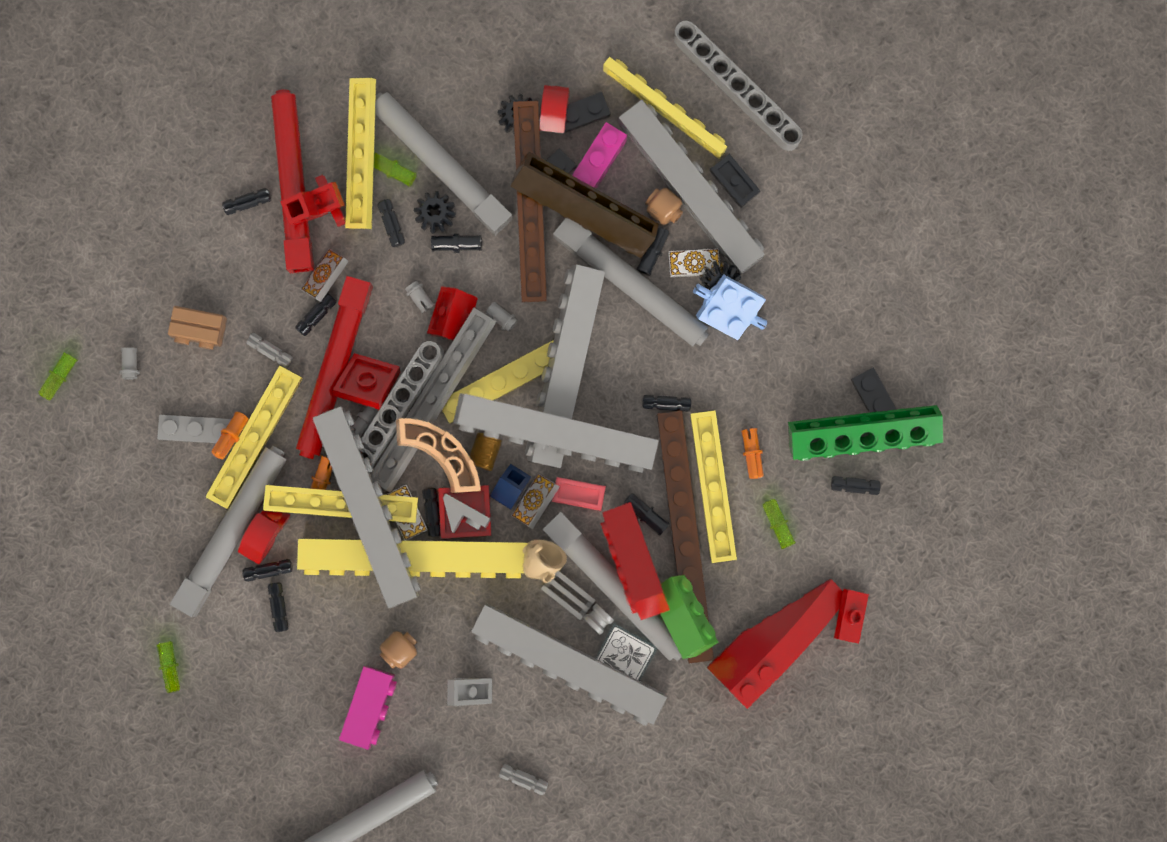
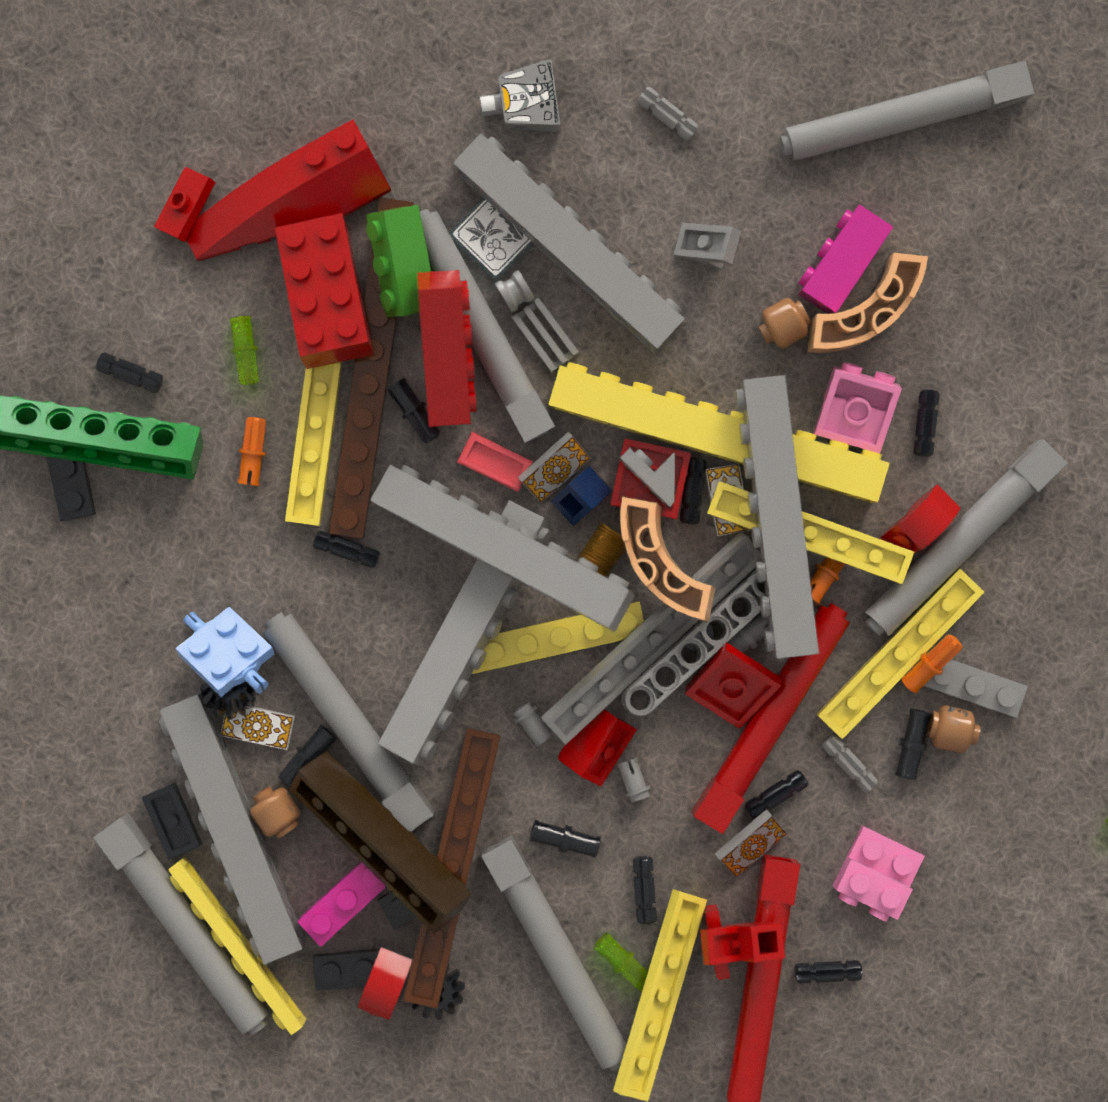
camera: 160 degrees left, 5 degrees up
(129, 363) = (1039, 796): light grey pin -> none
(168, 666) = (1088, 384): clear neon green axle -> none
(197, 327) = (937, 821): medium nougat brick -> none
(203, 393) = (953, 729): none -> medium nougat head
(228, 376) = (913, 744): none -> black pin
(229, 278) = (878, 874): none -> bright pink plate
(267, 570) = (927, 474): black axle -> none
(330, 604) = (858, 407): none -> bright pink plate
(334, 675) = (883, 307): none -> light nougat brick
(434, 221) = (584, 876): black gear -> none
(543, 560) = (564, 383): tan helmet -> none
(628, 760) = (526, 99): none -> torso
(733, 580) = (324, 291): none -> red brick
(735, 74) = (131, 965): light grey beam -> none
(755, 150) = (131, 852): none -> light grey brick

